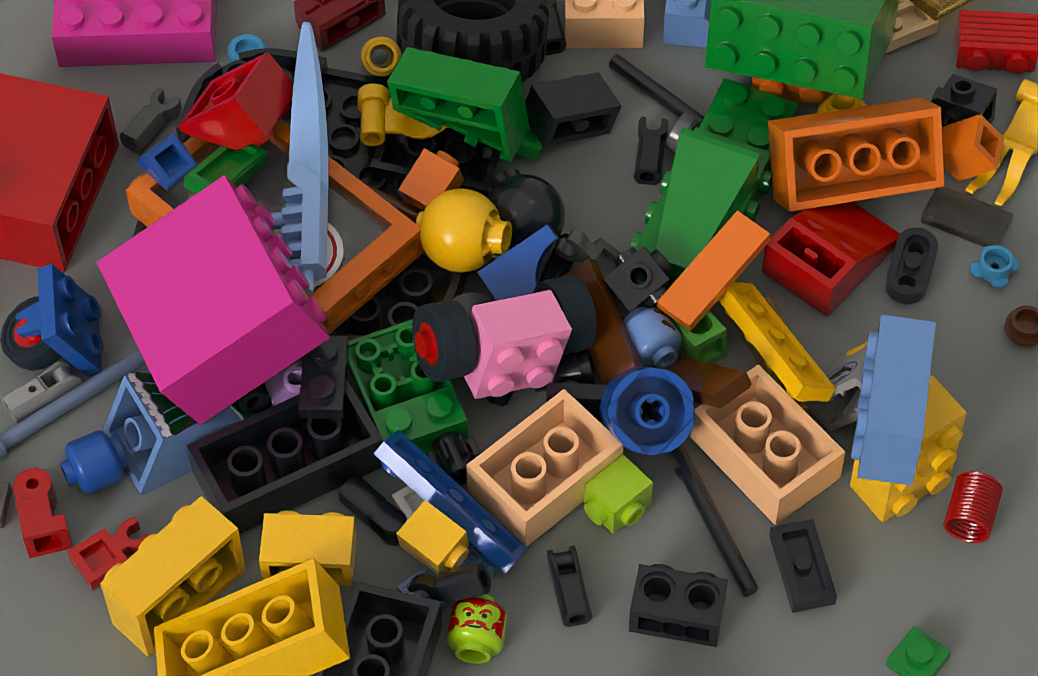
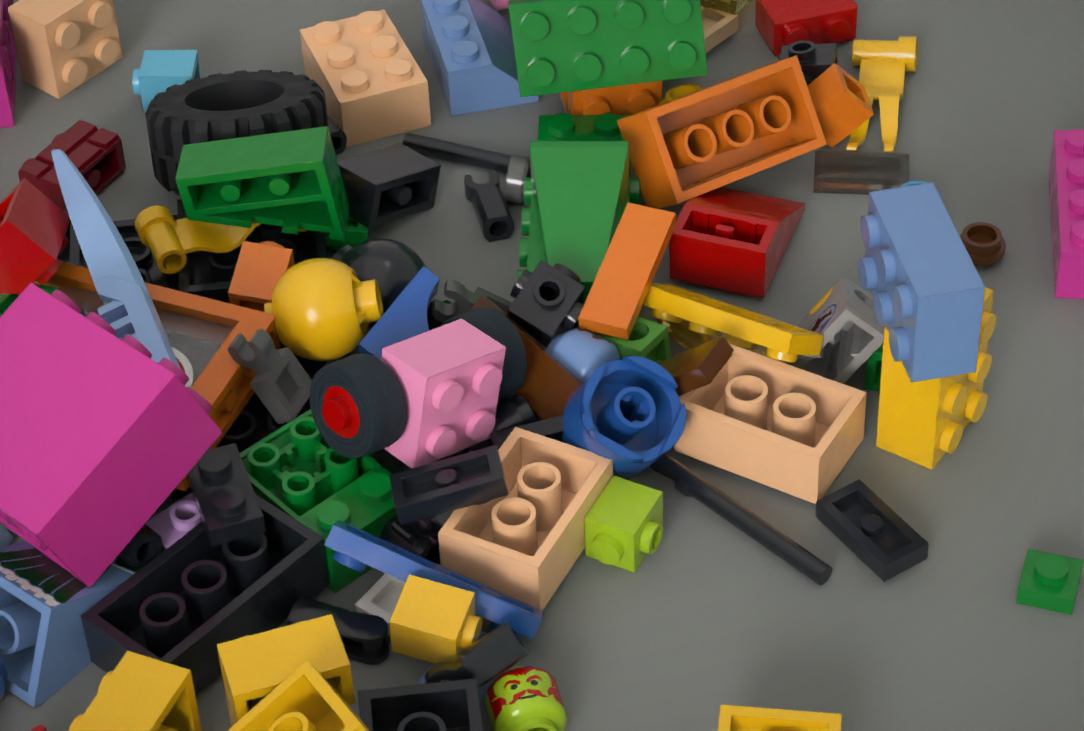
camera: 20 degrees left, 15 degrees down
(393, 56) = (144, 183): yellow brick -> none
(405, 282) = (279, 376): none -> dark grey plate
(487, 429) = (448, 485): none -> black plate
(569, 588) = (613, 635): black bar -> none
(675, 615) = (753, 610): black brick -> none
(910, 268) = (830, 226): black plate -> none
(973, 507) = (1026, 416): red piece -> none

